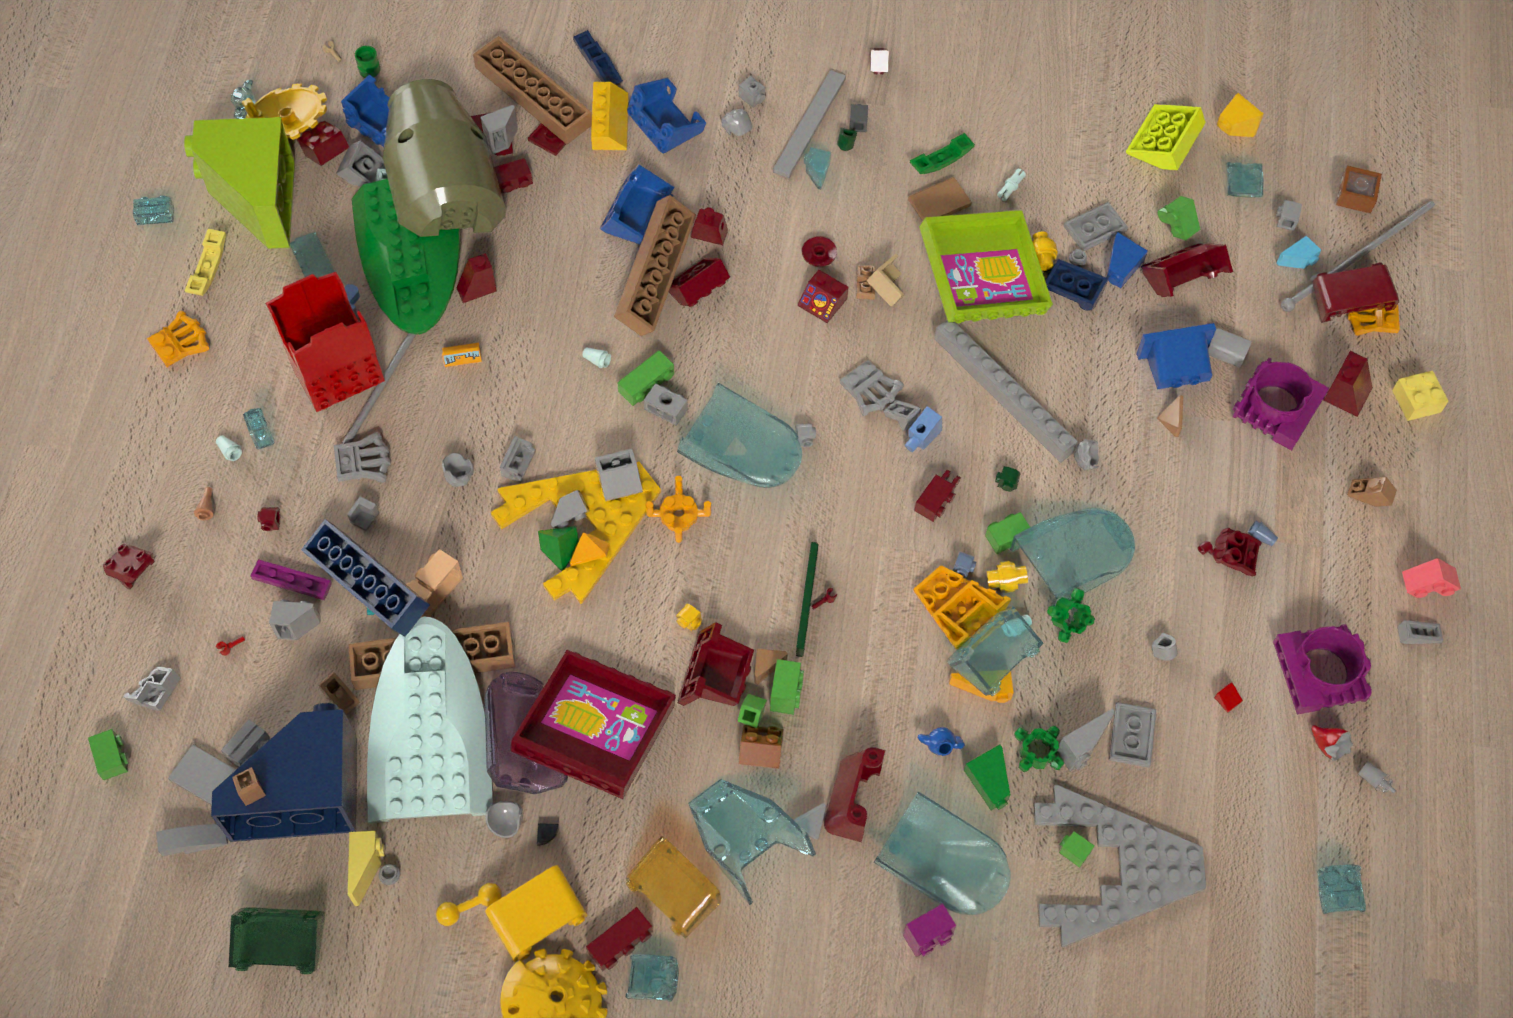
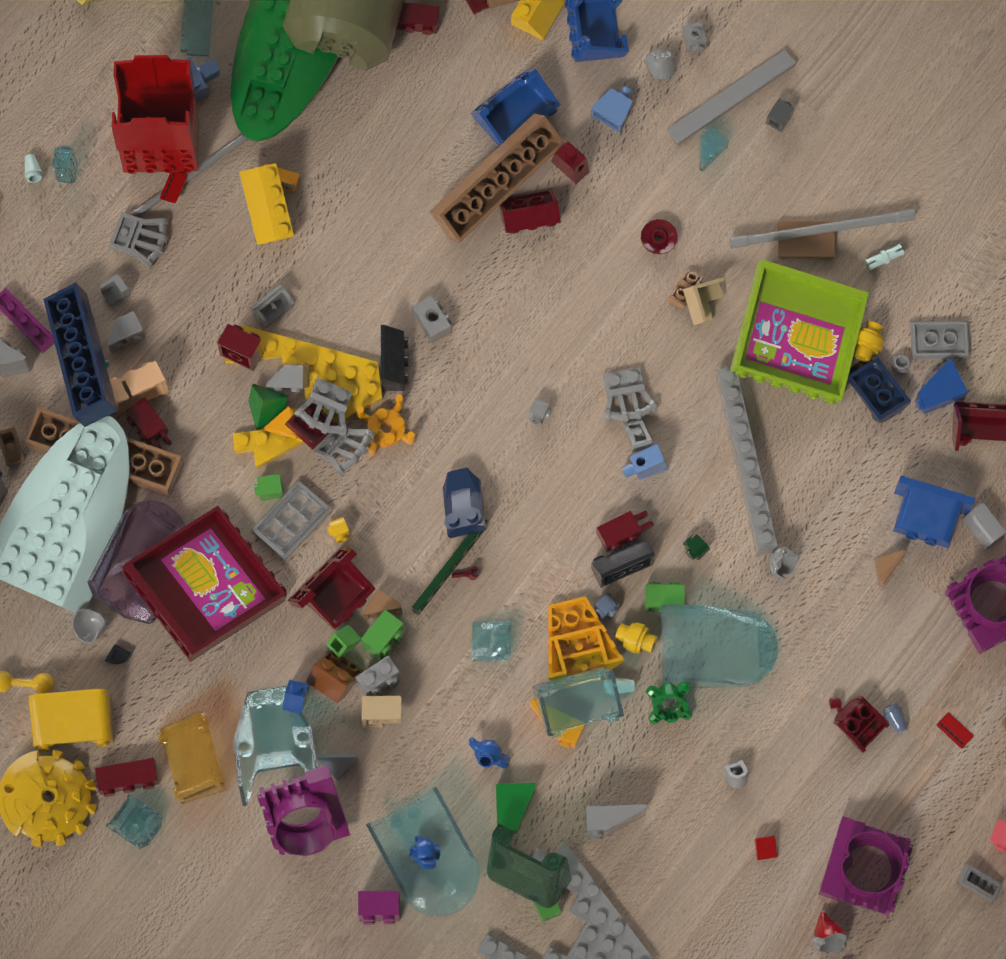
camera: 30 degrees right, 10 degrees up
(167, 344) = (29, 40): light orange plate -> none
(269, 518) = (33, 254): dark red plate -> none
(369, 403) = (173, 187): none -> red sticker
(394, 542) = (125, 331): none -> light grey slope
(457, 469) = (214, 290): light grey hair -> none
(458, 611) = (148, 423): none -> dark red hinge
(465, 375) = (266, 204): none -> yellow slope
(476, 279) = (328, 112): dark red slope -> none
(511, 502) = (240, 346): none -> dark red brick
(598, 357) = (397, 241): light aqua cone -> none
(604, 612) = (269, 487): none -> bright green brick
(612, 538) = (310, 436): none -> dark red tile
(618, 474) = (348, 367): light grey slope -> none
(618, 507) = (331, 398): none -> light grey plate
(640, 632) = (291, 520): none -> clear piece
(641, 380) = (428, 283): bright green brick -> none
(643, 545) = (334, 446): none -> light grey plate
(651, 451) = (393, 359): none -> black slope
(719, 173) = (613, 108): none -> medium blue torso
(738, 779) = (295, 696): none -> blue slope
(742, 441) = (478, 391): clear light blue windscreen -> none
(787, 539) = (463, 503): none -> dark blue slope
(787, 879) = (313, 791): none -> magenta hose
(803, 727) = (378, 678): none -> light grey brick
(823, 296) = (635, 284): dark red slope -> none
(823, 752) = (381, 710): none -> tan panel
(843, 815) = (364, 771): dark red windscreen -> none
(846, 139) = (752, 135): dark green plate -> none
(879, 60) = (837, 61): slope -> none
(883, 644) = (491, 641): none -> clear light blue slope
(891, 222) = (899, 216): none -> light grey piece
(941, 858) = (425, 852): none -> blue piece
(943, 157) = (836, 195): green slope -> none
(955, 521) = (622, 562): none -> black slope
(1029, 758) = (576, 823): green piece -> none
(1043, 826) = (524, 875): none -> clear green windscreen
(1132, 734) = (660, 835): light grey tile -> none
(1314, 520) = (955, 730): none -> red sticker

